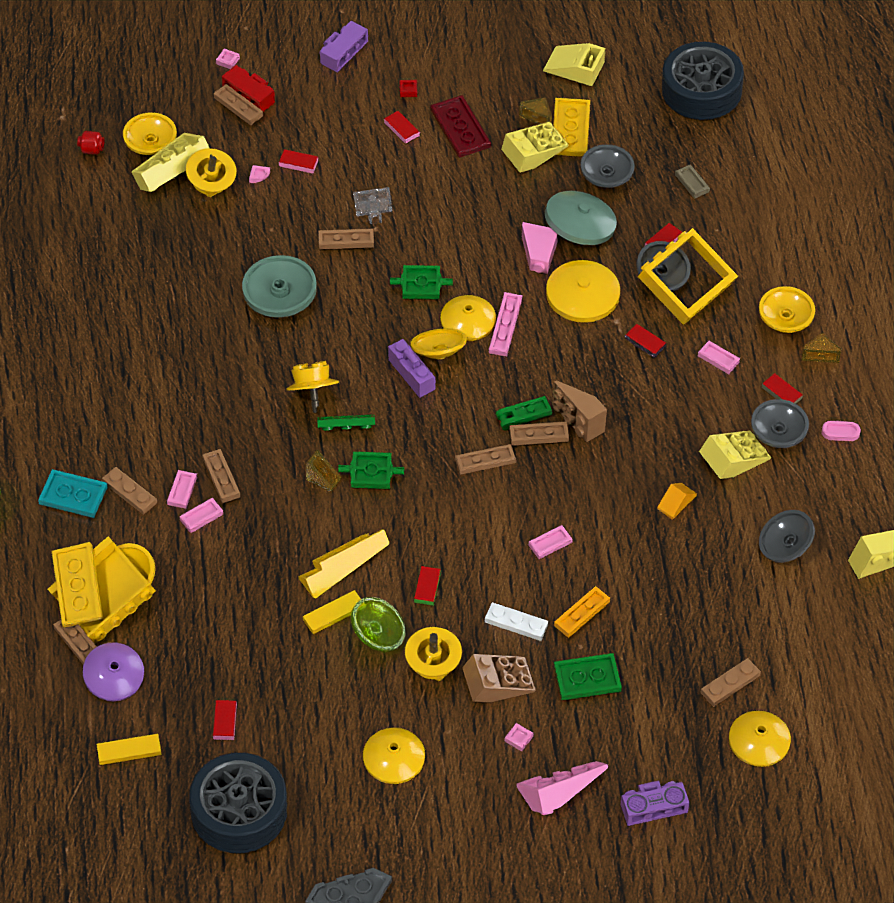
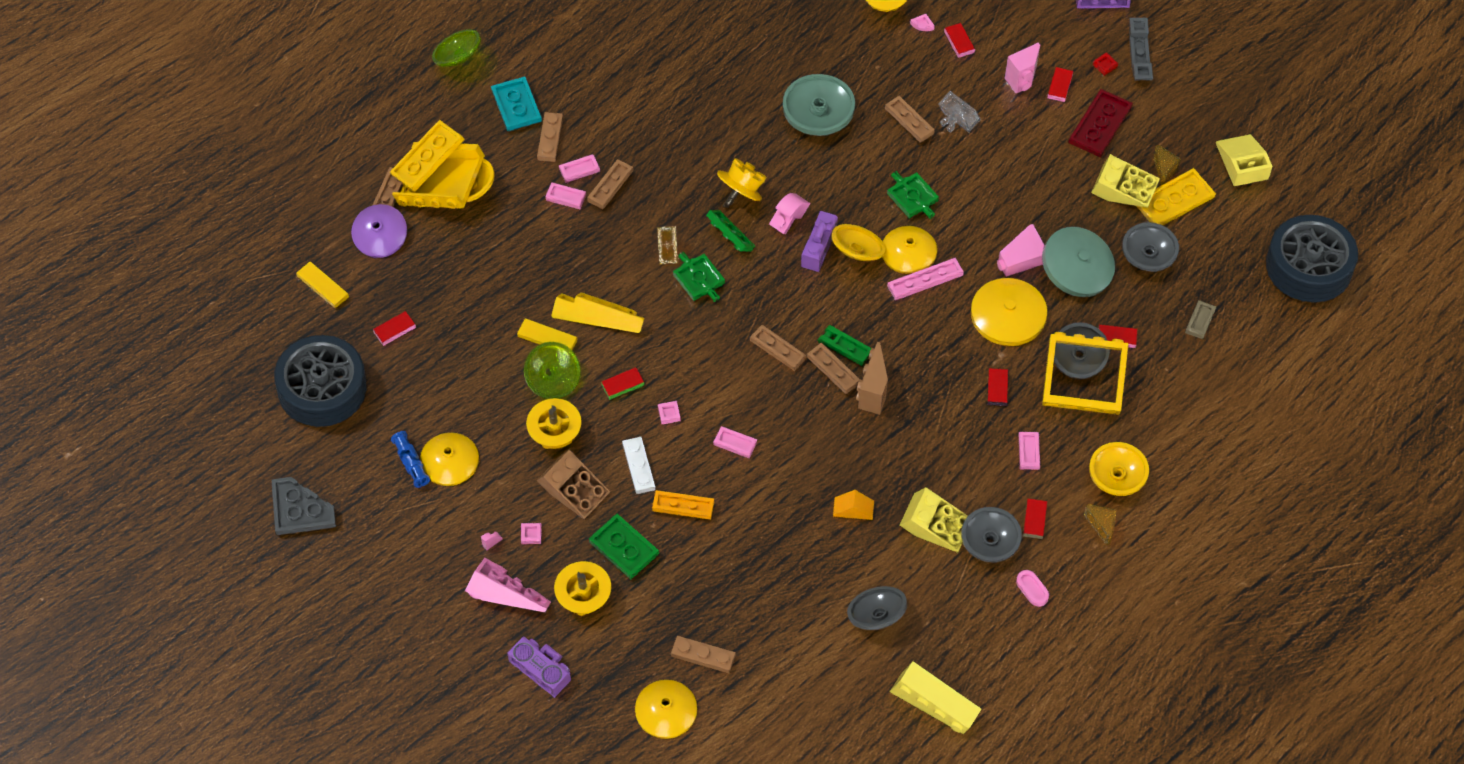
camera: 55 degrees right, 5 degrees up
(366, 368) = (789, 209): none -> bright pink brick
(373, 136) = (1022, 68): none -> bright pink slope
(375, 783) = (410, 459): none -> blue piece
(417, 61) = (1140, 49): none -> dark grey slope
(483, 570) = (669, 412): none -> bright pink tile
(502, 770) = (490, 540): none -> bright pink tile
(610, 725) = (582, 587): none -> yellow piece

